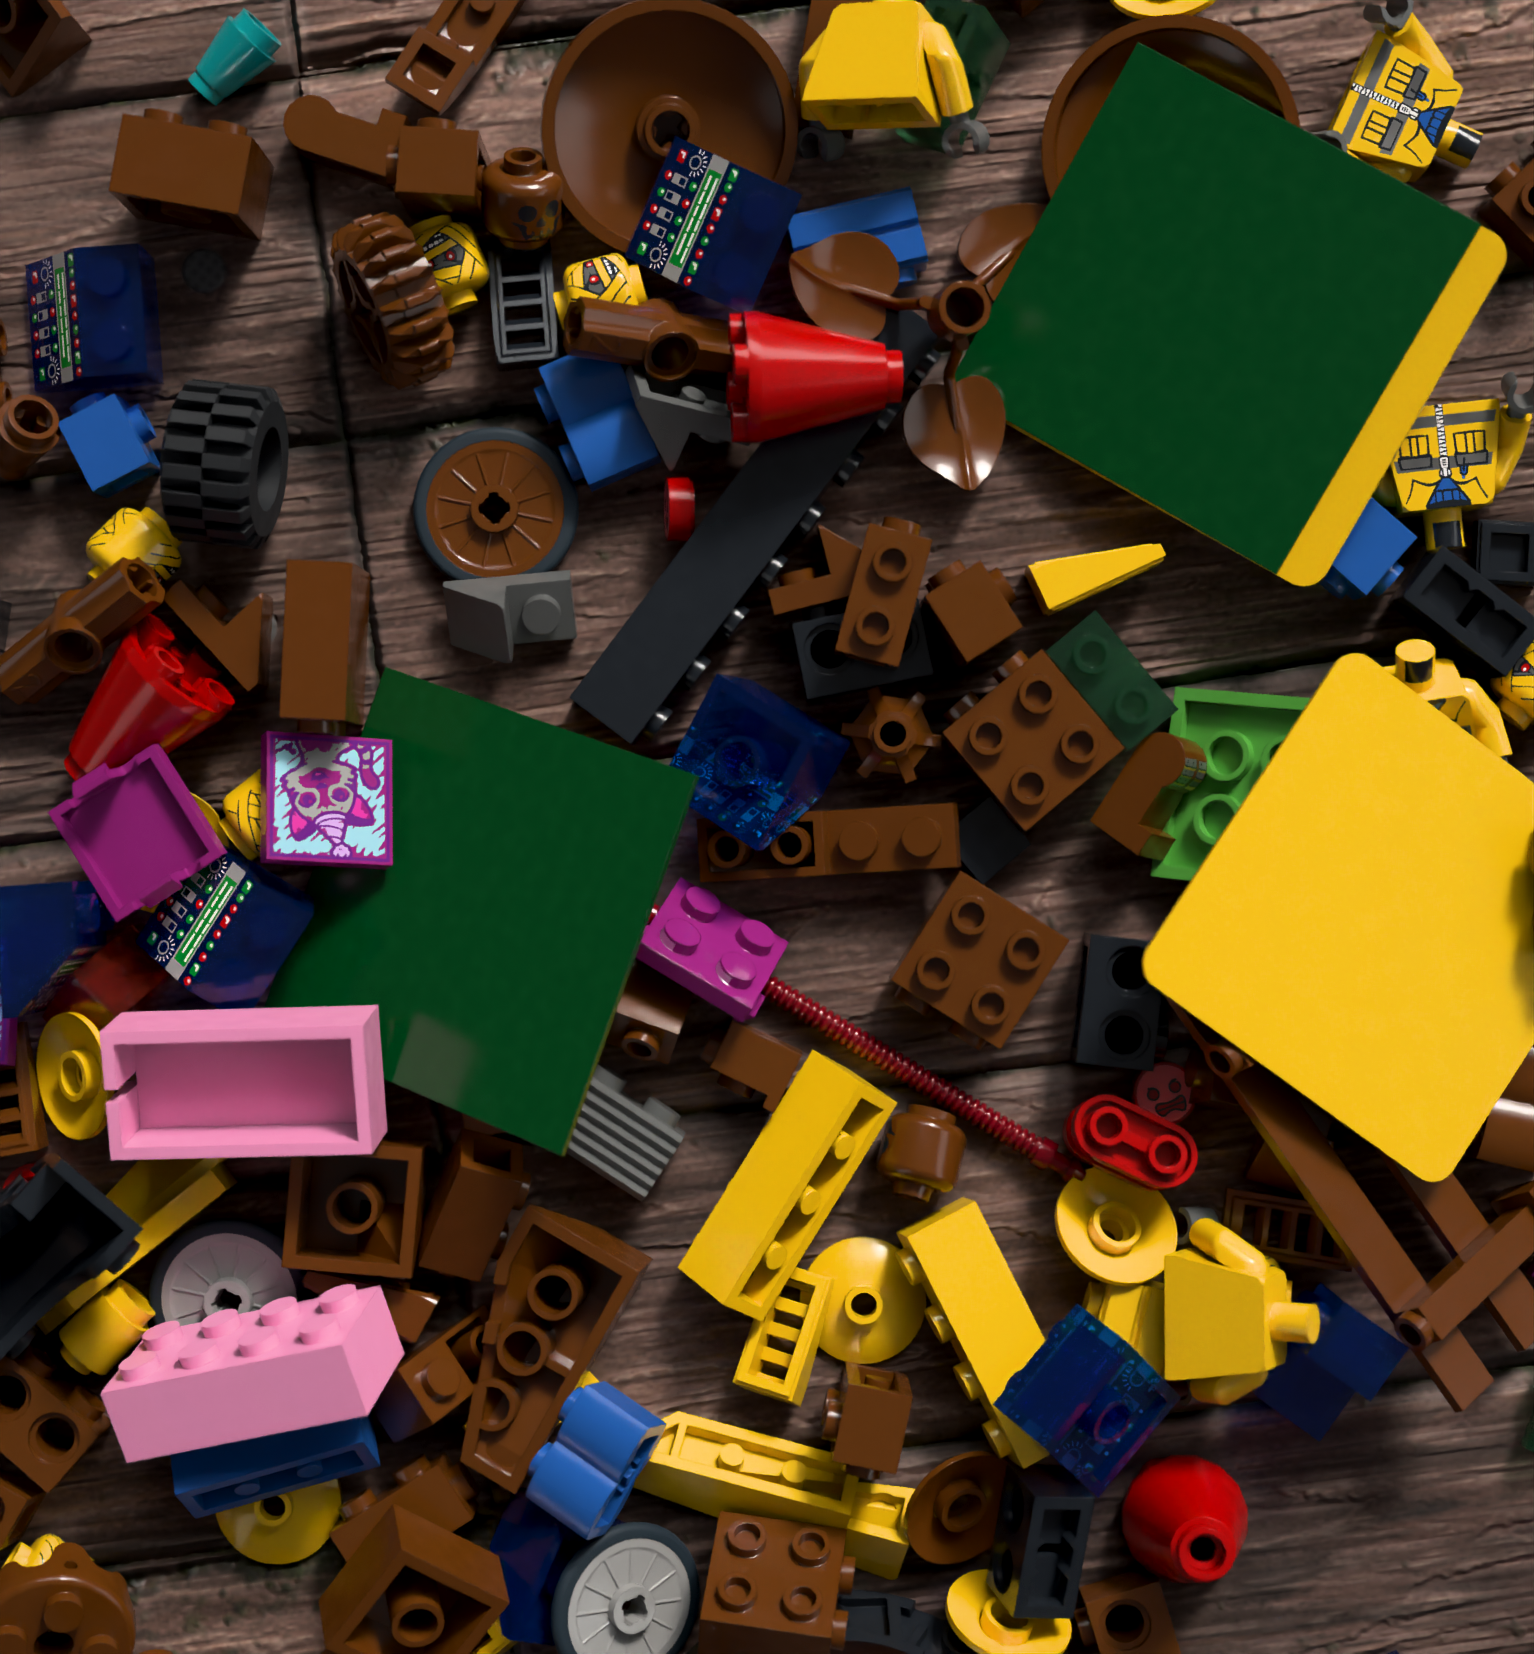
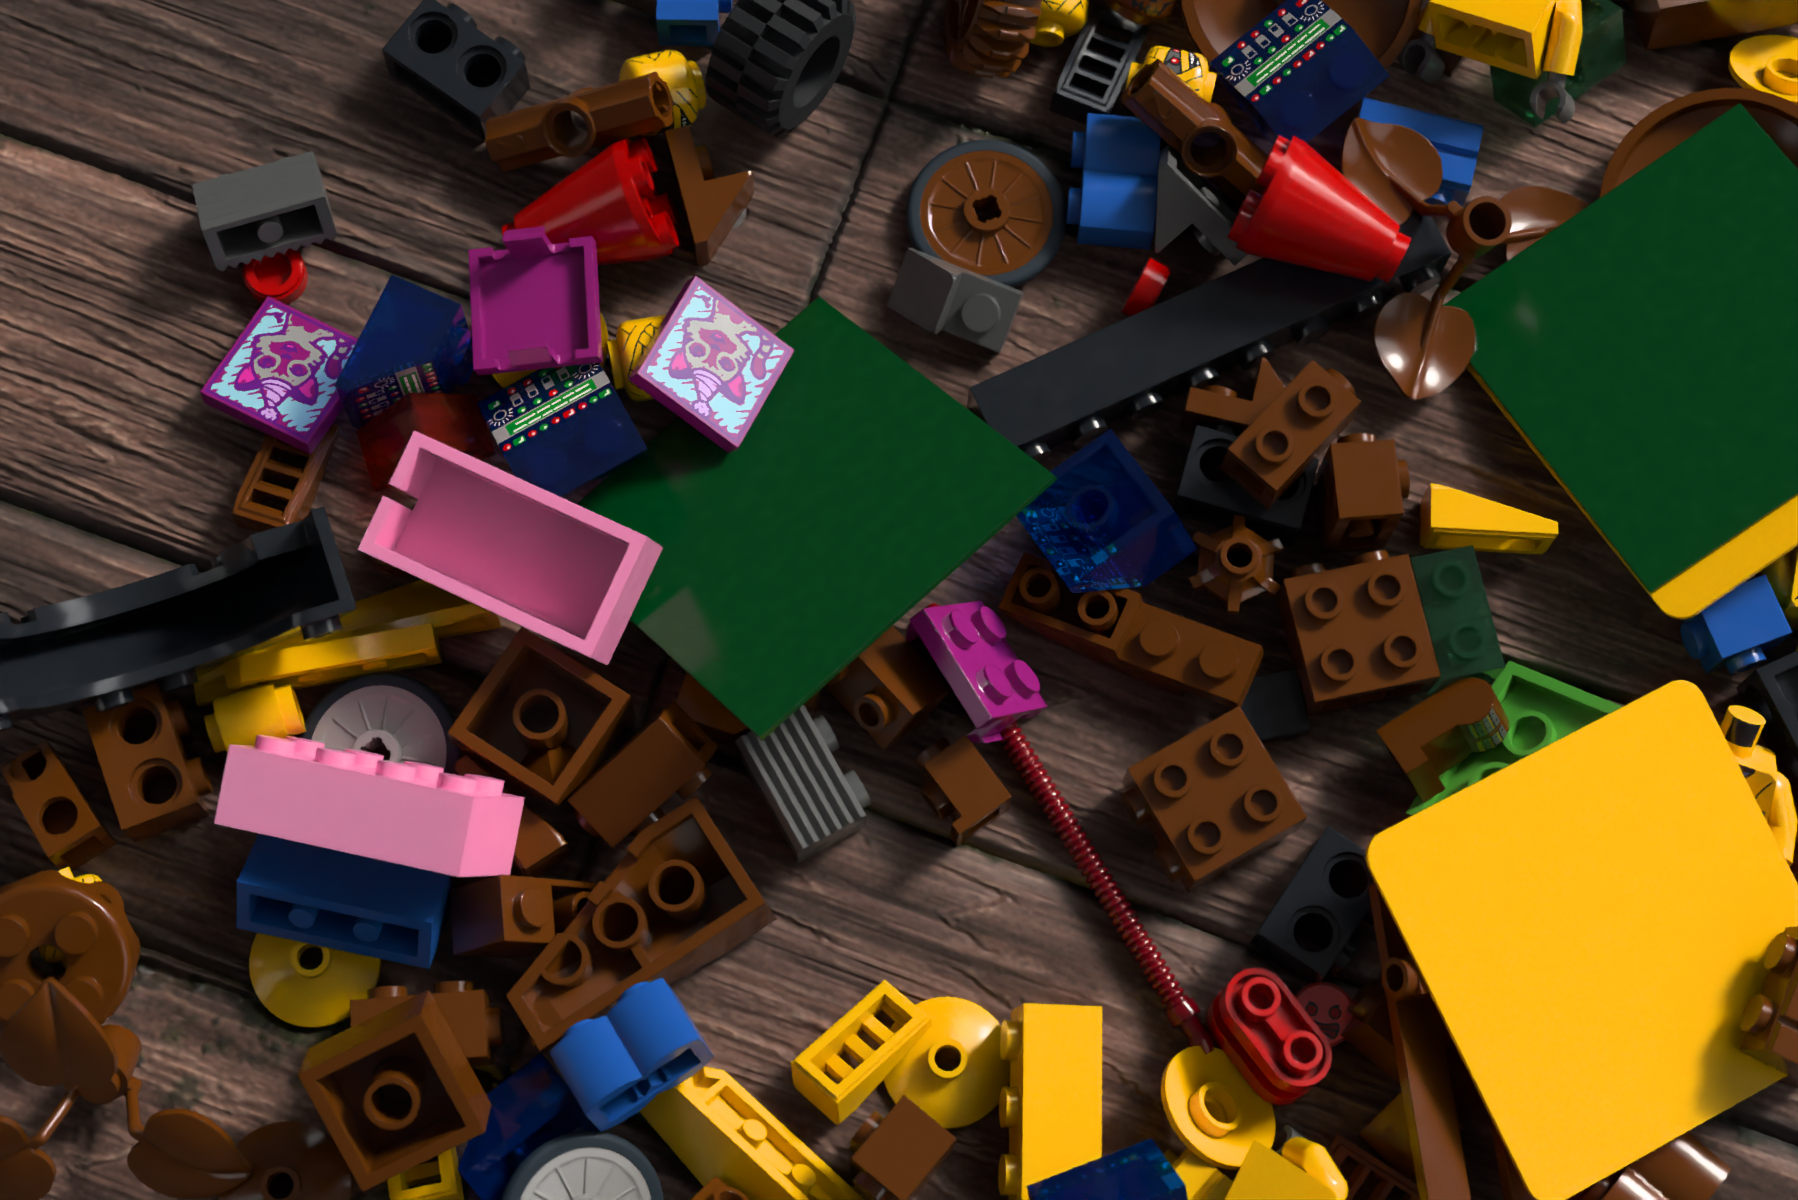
camera: 25 degrees right, 15 degrees down
(72, 1076) = (358, 482): yellow dish -> none
(324, 646) = (784, 235): reddish brown brick -> none
(783, 1181) = (936, 909): yellow brick -> none
(921, 1153) = (1072, 948): reddish brown head -> none

